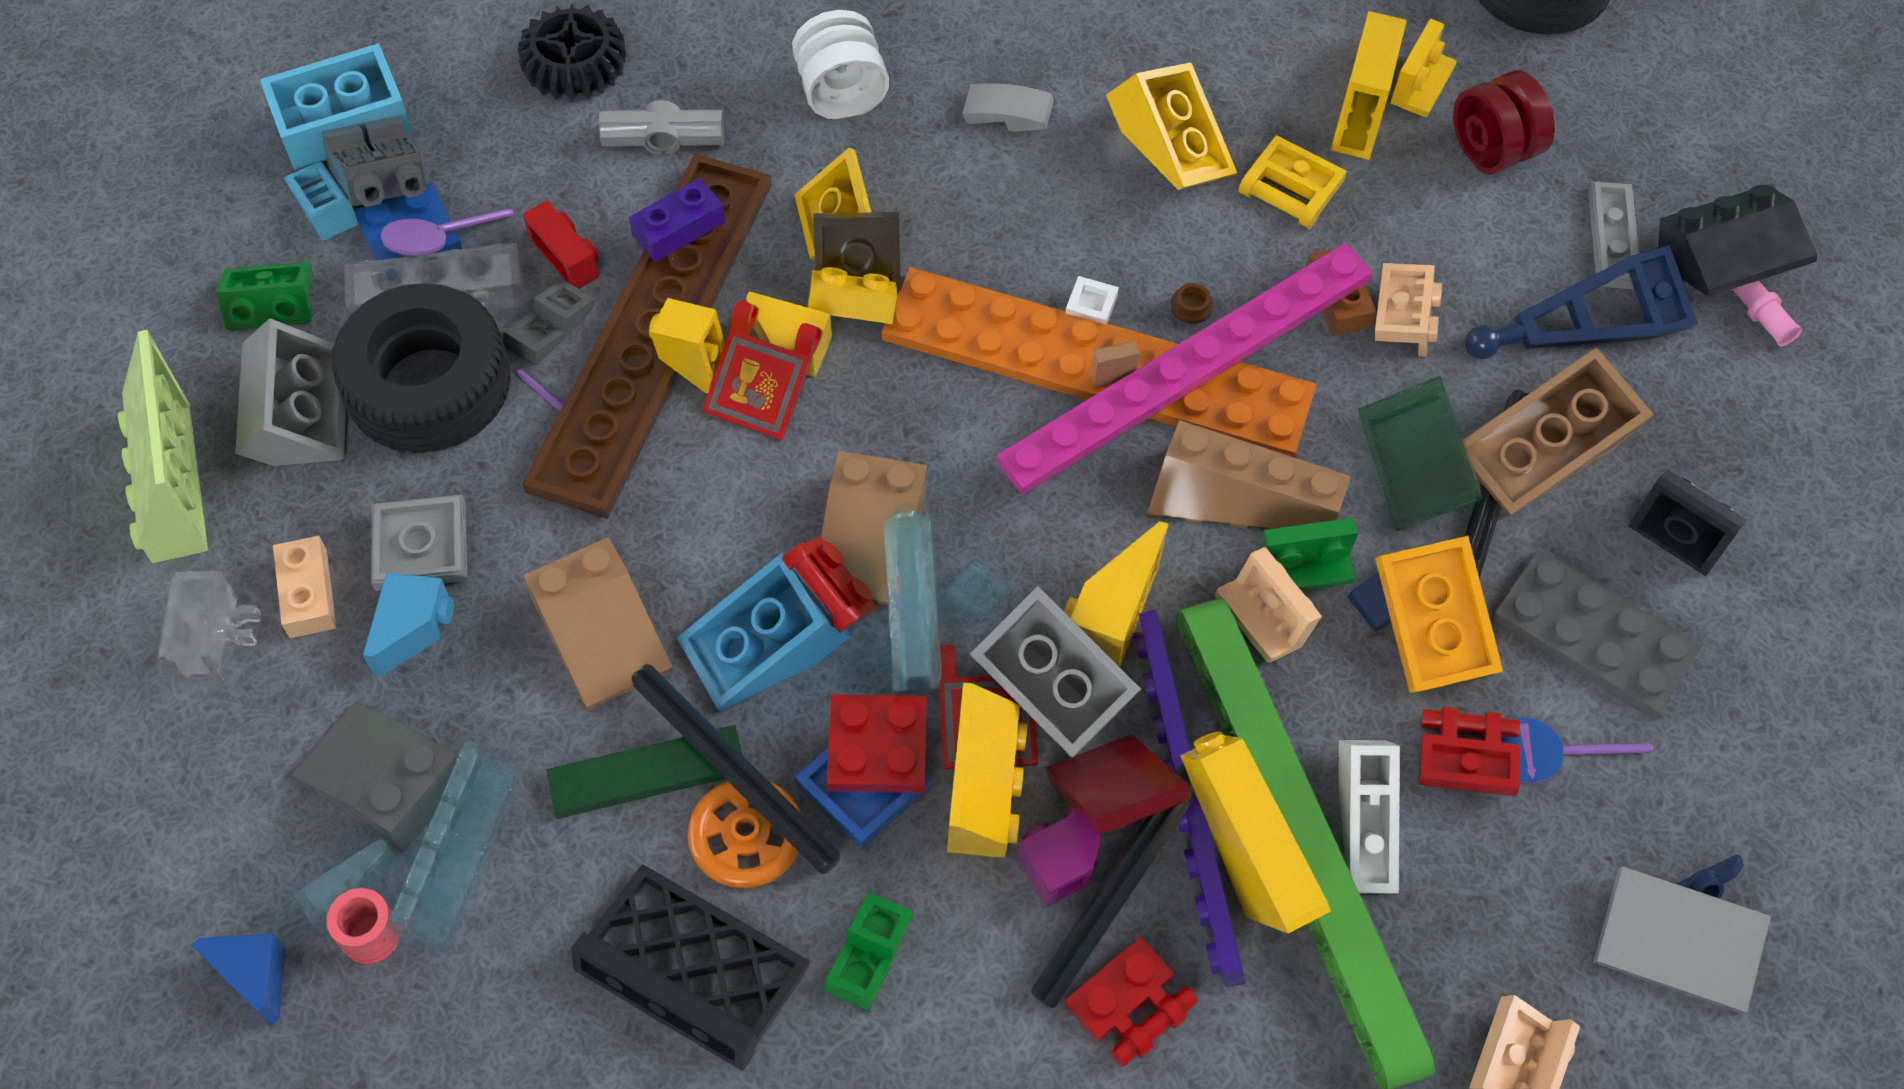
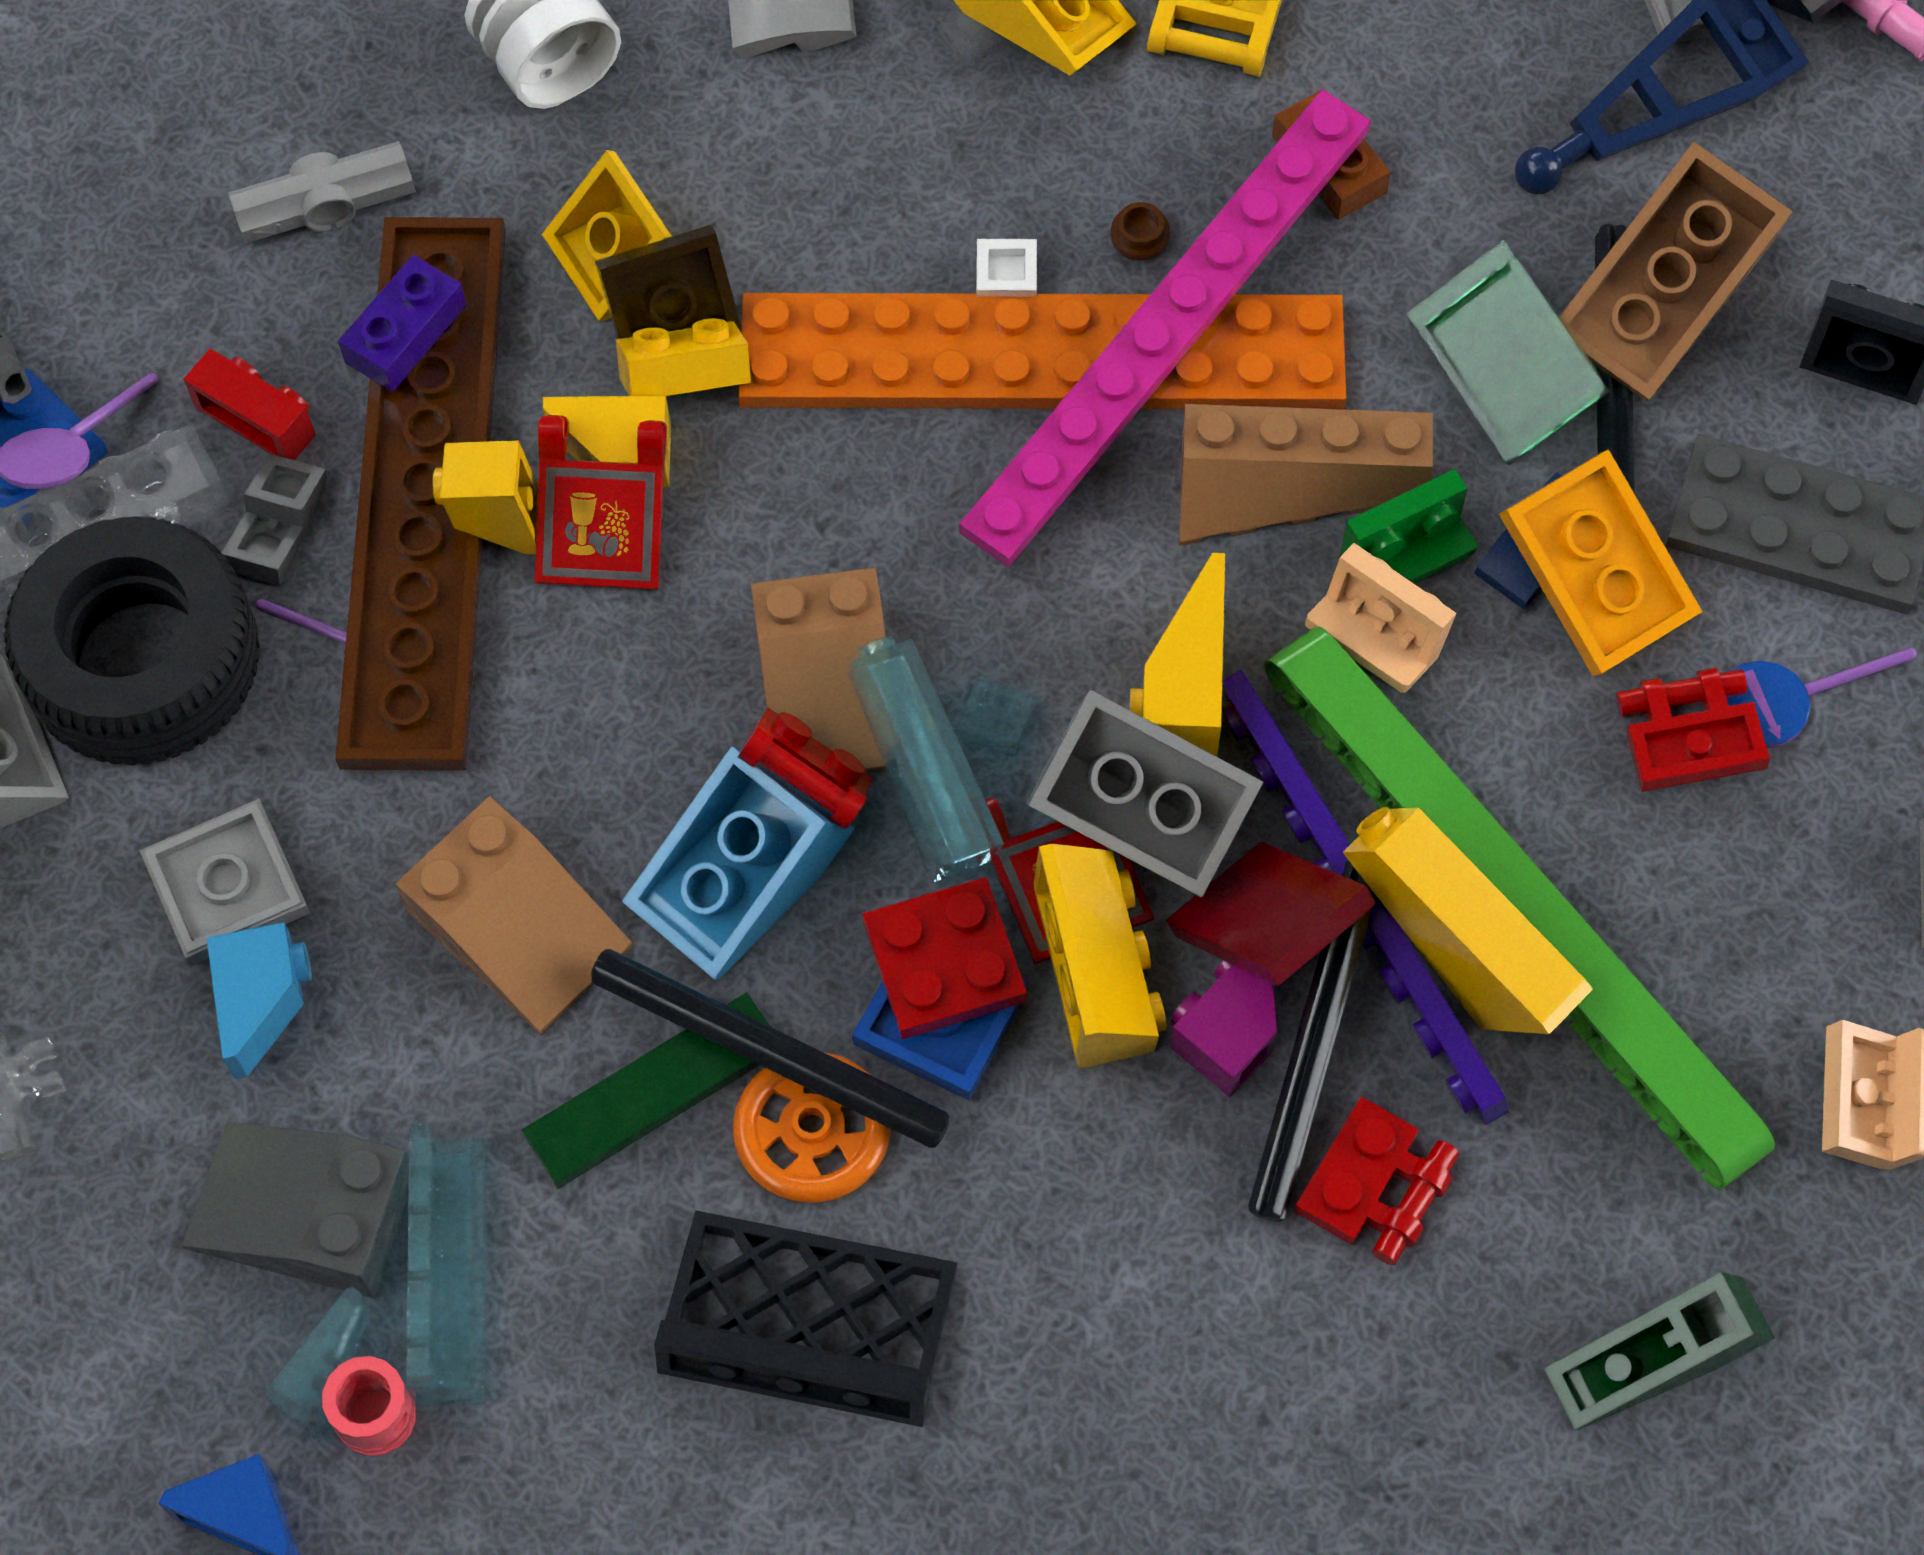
camera: 15 degrees left, 5 degrees up
(304, 587) = (93, 991): light nougat piece -> none
(572, 52) = (114, 129): black gear -> none
(868, 951) = (1027, 1226): green slope -> none
(1113, 363) = (1072, 350): medium nougat tile -> none
(1370, 812) = (1594, 845): white slope -> none
(1407, 305) = (1425, 150): light nougat bracket -> none

